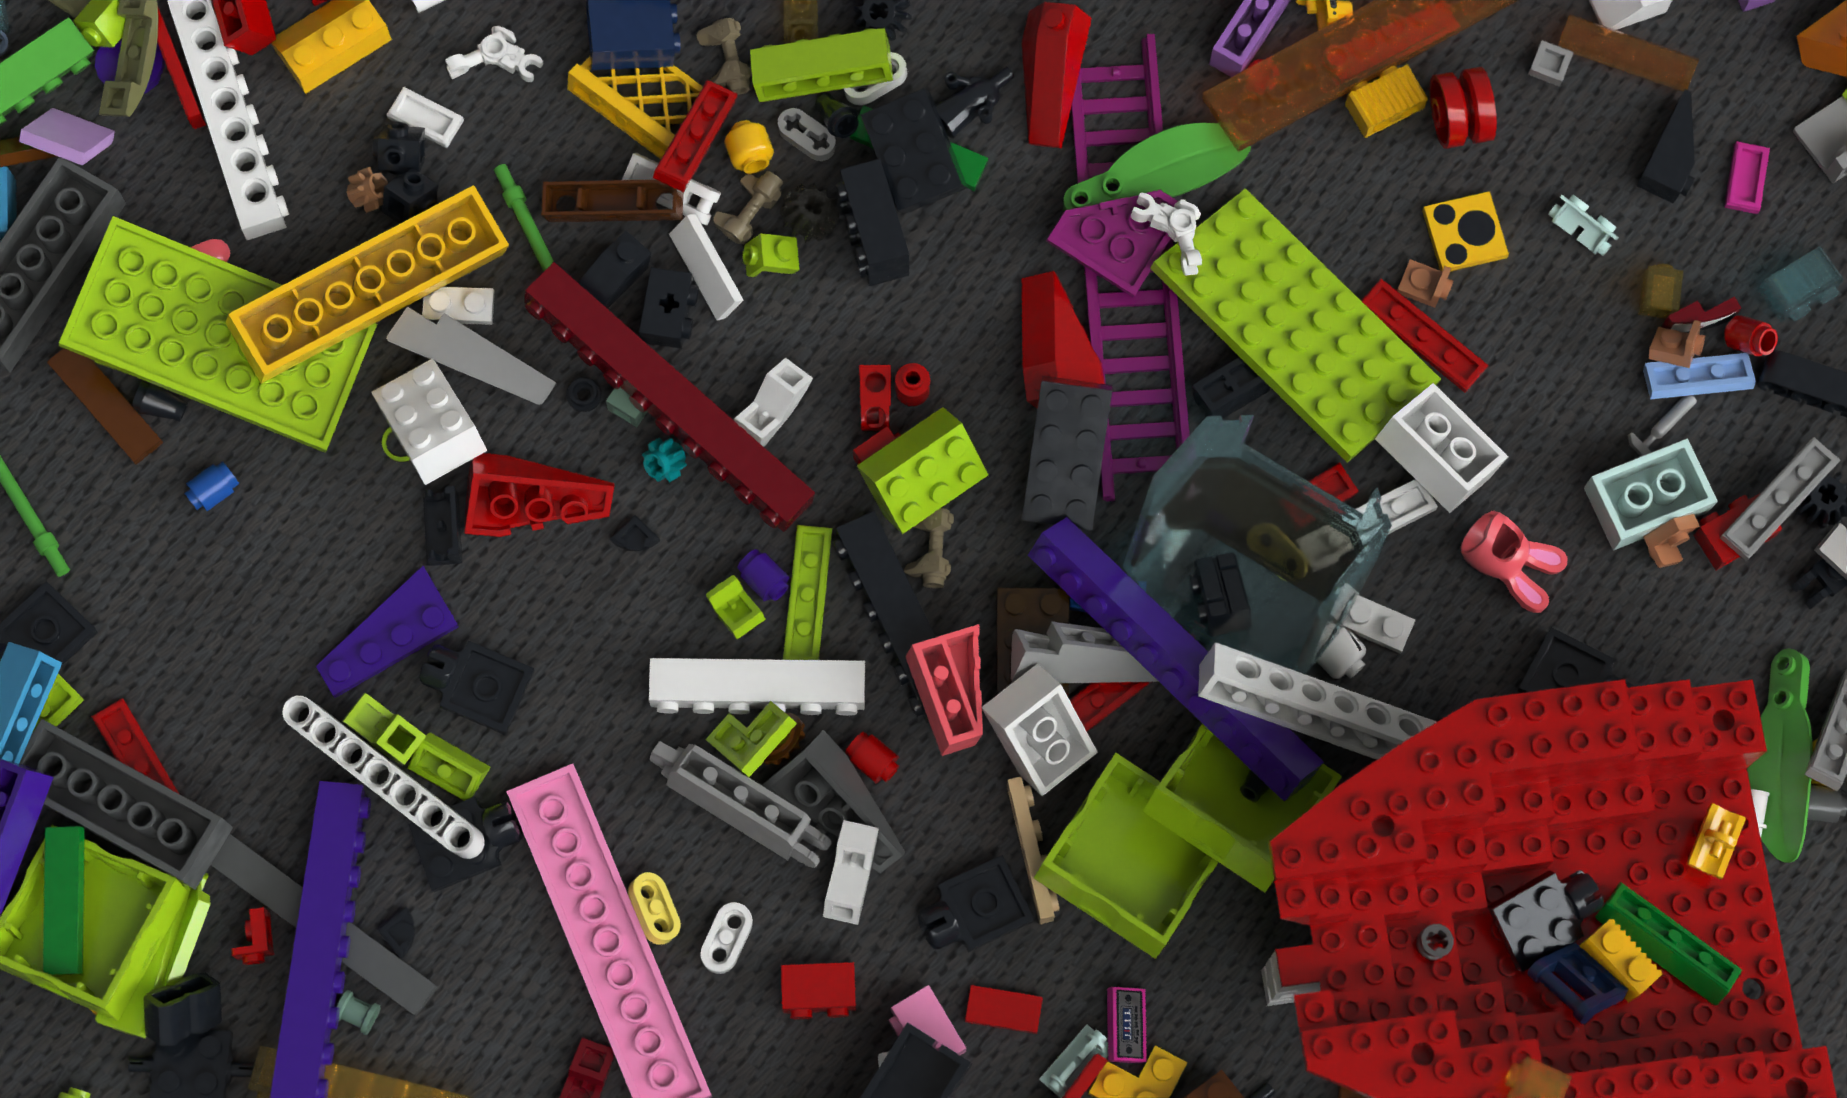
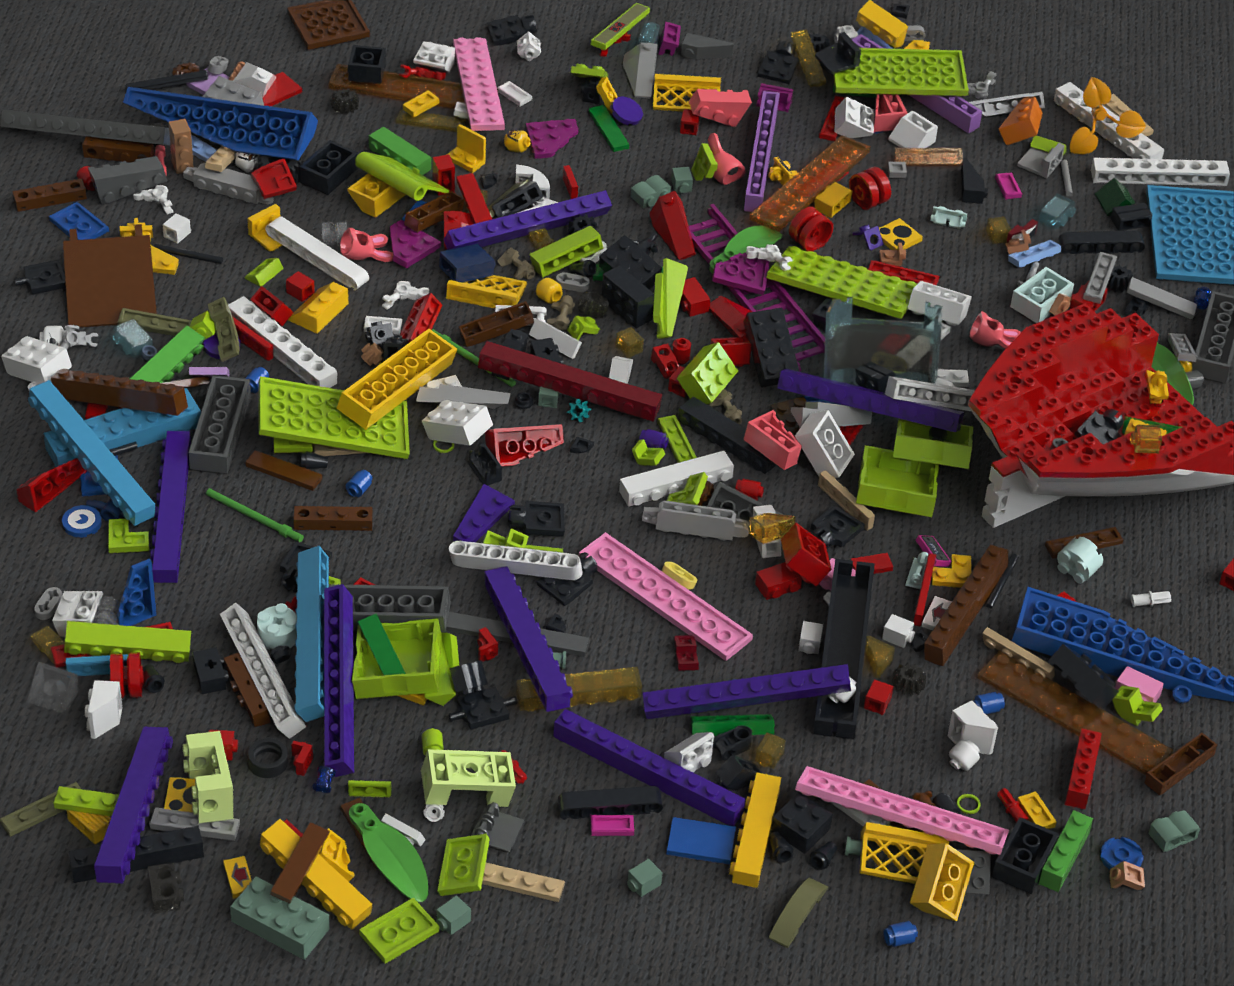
camera: 25 degrees left, 30 degrees down
(133, 549) = (337, 517): none -> reddish brown piece
(144, 176) = (254, 377): none -> blue brick
(488, 141) = (421, 317): none -> red fence
(695, 136) = (523, 287): red tile -> none
(726, 938) = (723, 577): white plate -> none
(832, 325) = (629, 342): none -> clear yellow brick
(850, 882) = (770, 526): none -> clear yellow slope
(876, 972) = (805, 554): none -> red brick
(948, 248) = (667, 296): none -> lime wedge
(999, 420) = (736, 348): none -> red brick
(1000, 255) = (694, 298): none -> red brick
(1296, 174) = (811, 229): none -> red wheel
(1408, 206) = (867, 232): none -> dark purple bracket
(1750, 336) = (1048, 231): red brick -> none

